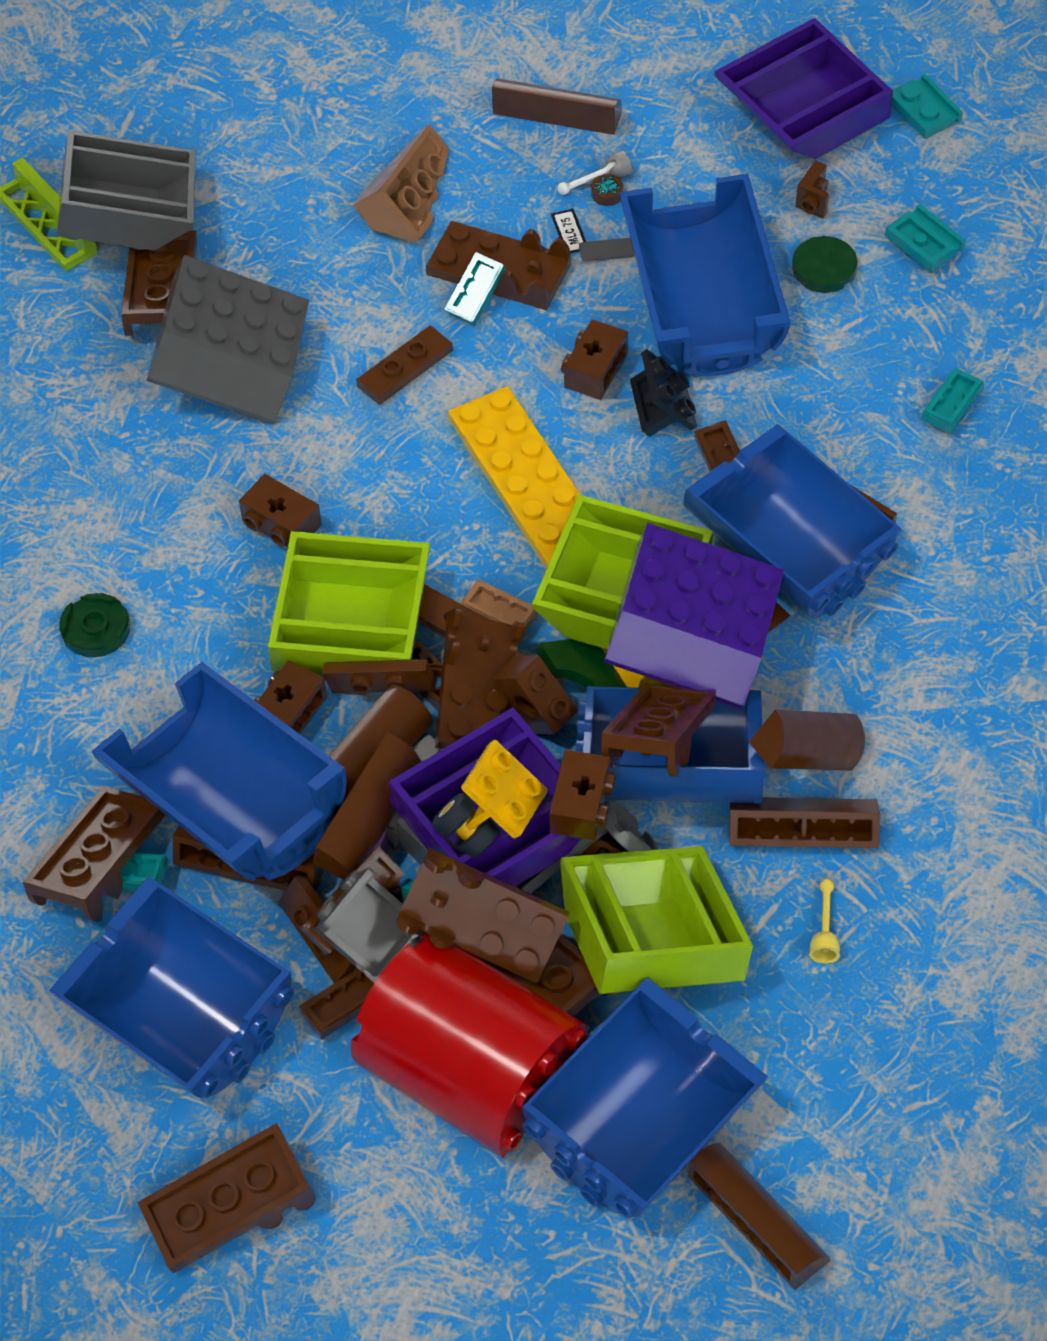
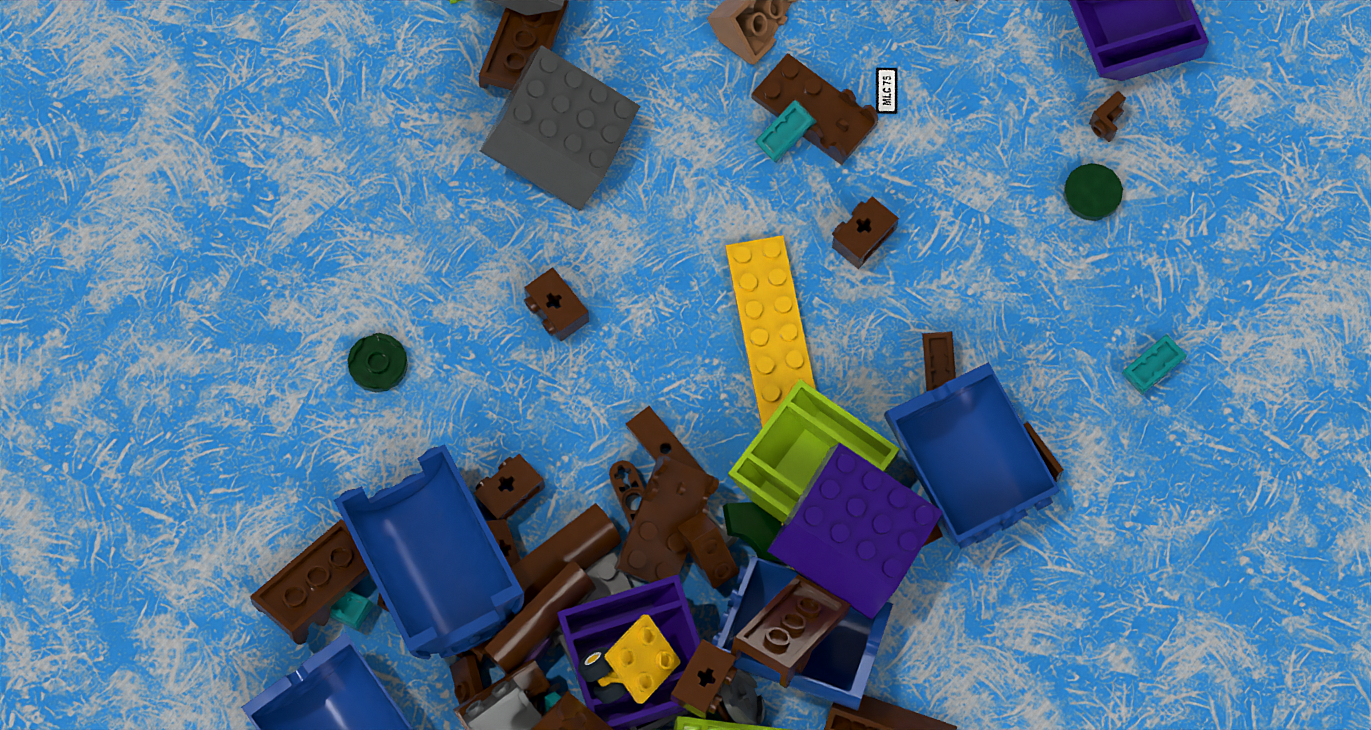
camera: 15 degrees right, 15 degrees up
(347, 600) = (584, 415): lime slope -> none
(378, 676) = (577, 486): reddish brown plate -> none
(404, 365) = (704, 186): reddish brown plate -> none
(498, 605) = (707, 450): medium nougat plate -> none
(606, 189) = (931, 59): tile -> none
(606, 249) = (913, 119): dark grey sticker -> none
(617, 164) = (946, 38): hinge -> none
(661, 395) = (909, 287): black bracket -> none
(708, 278) = (982, 183): blue cylinder -> none
(810, 740) = (914, 672): reddish brown brick -> none
(925, 106) = (1237, 53): teal plate -> none
(925, 238) = (1188, 193): teal plate -> none

